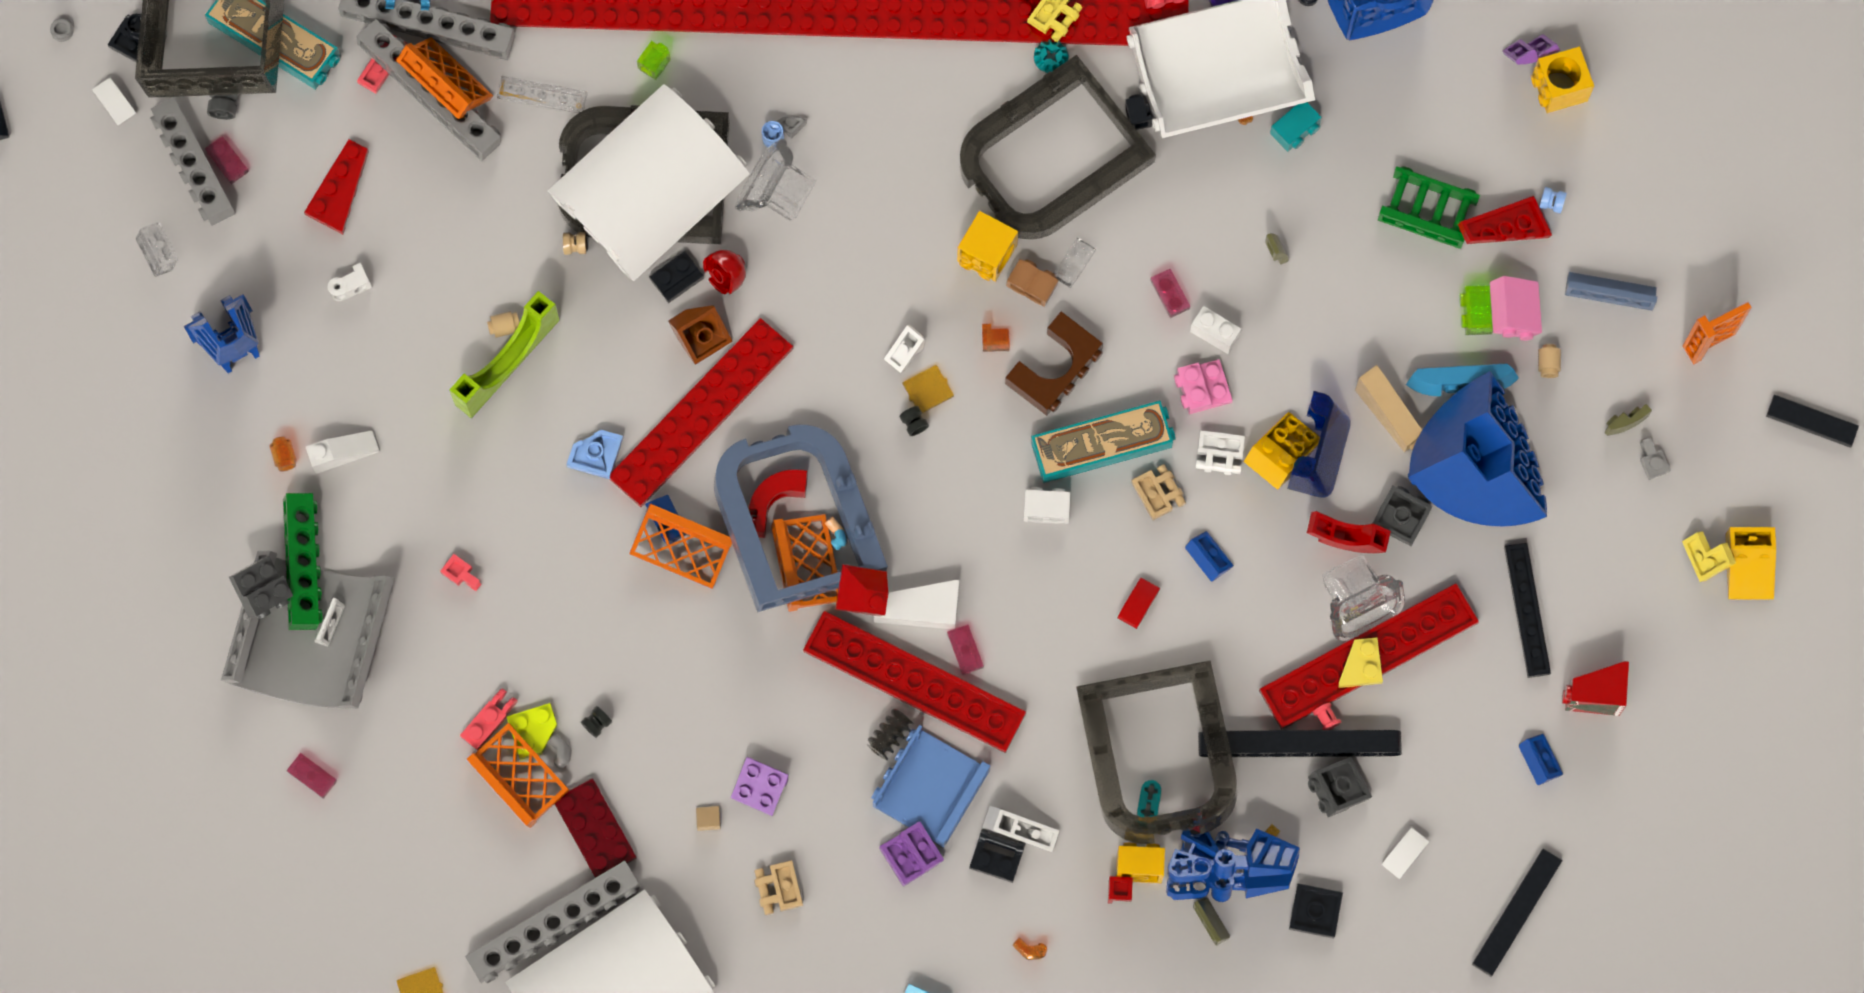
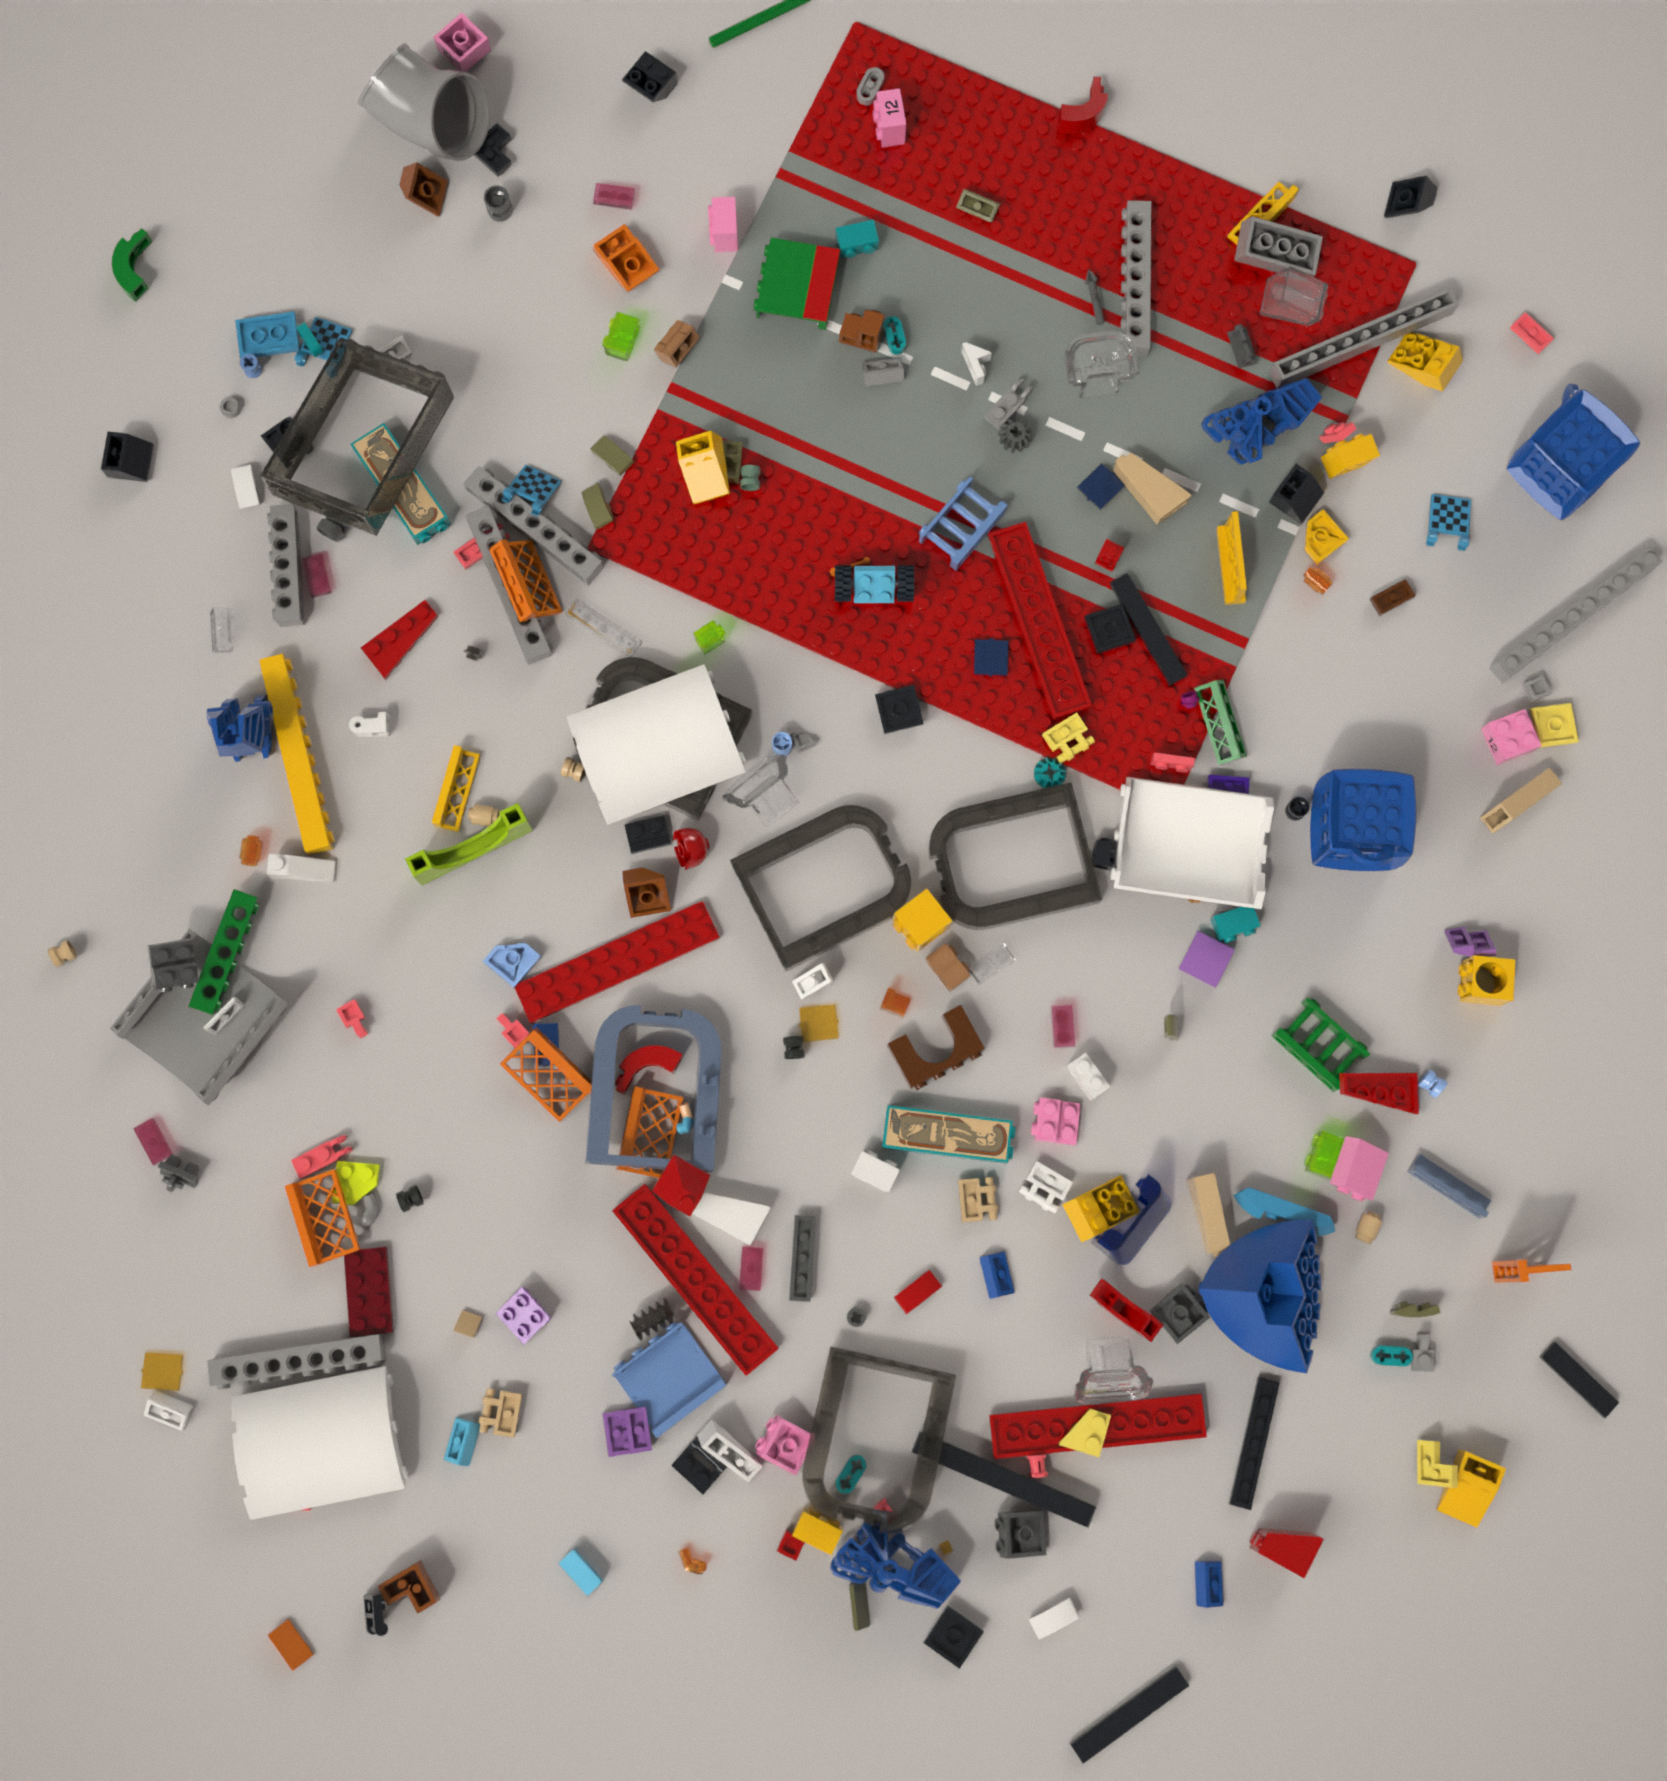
camera: 20 degrees right, 5 degrees up
(136, 631) = (61, 954): none -> tan wheel
(288, 343) = (296, 754): none -> yellow brick
(352, 796) = (177, 1177): none -> dark grey hips
(421, 171) = (473, 652): none -> clear smoke plate
(456, 318) = (448, 786): none -> yellow fence
(628, 521) = (513, 1032): none -> coral plate
(752, 932) = (462, 1442): none -> medium azure slope
(836, 214) = (804, 837): none -> clear smoke door
(874, 54) = (899, 709): none -> black plate
(1011, 618) = (802, 1258): none -> dark grey plate
(1071, 799) = (783, 1444): none -> bright pink plate
(1082, 653) = (863, 1318): none -> dark grey bush
(1282, 171) = (1206, 959): none -> medium lavender slope
(1622, 468) = (1391, 1361): none -> teal beam

